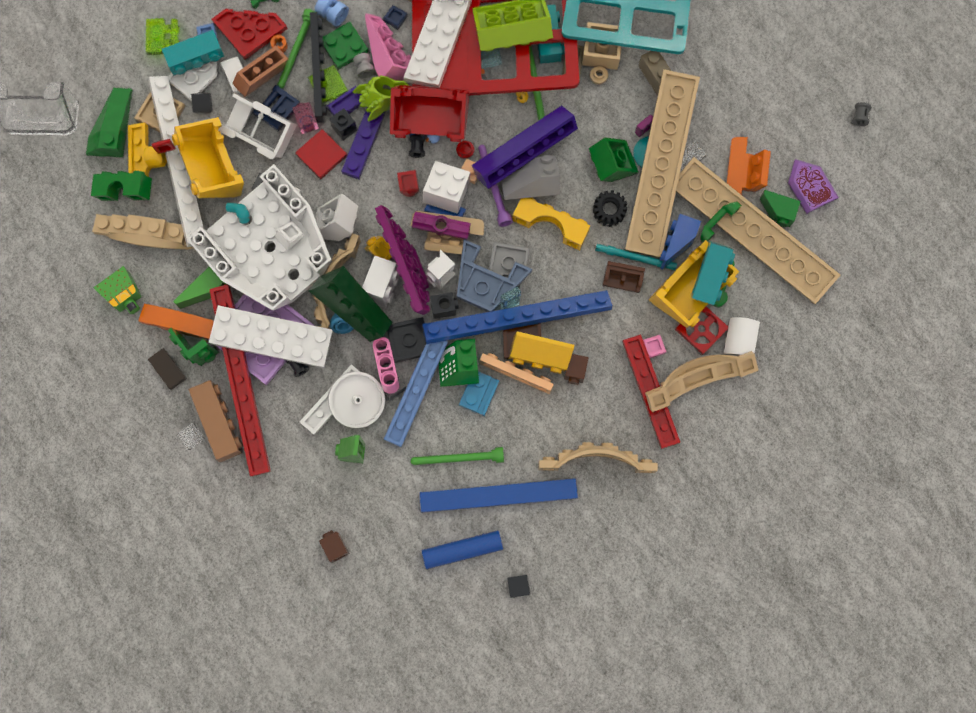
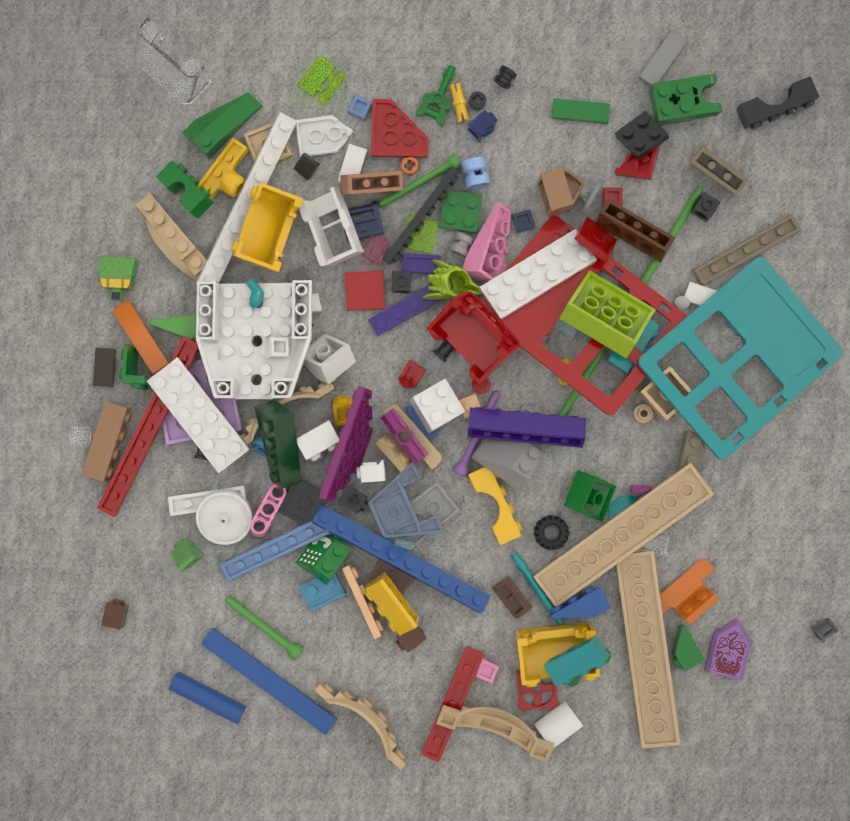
camera: 45 degrees right, 10 degrees up
(163, 146) = (240, 184): red slope -> none
(193, 53) = (332, 119): teal brick -> none
(518, 586) = (225, 760): black tile -> none
(730, 208) = (642, 617): green bar -> none

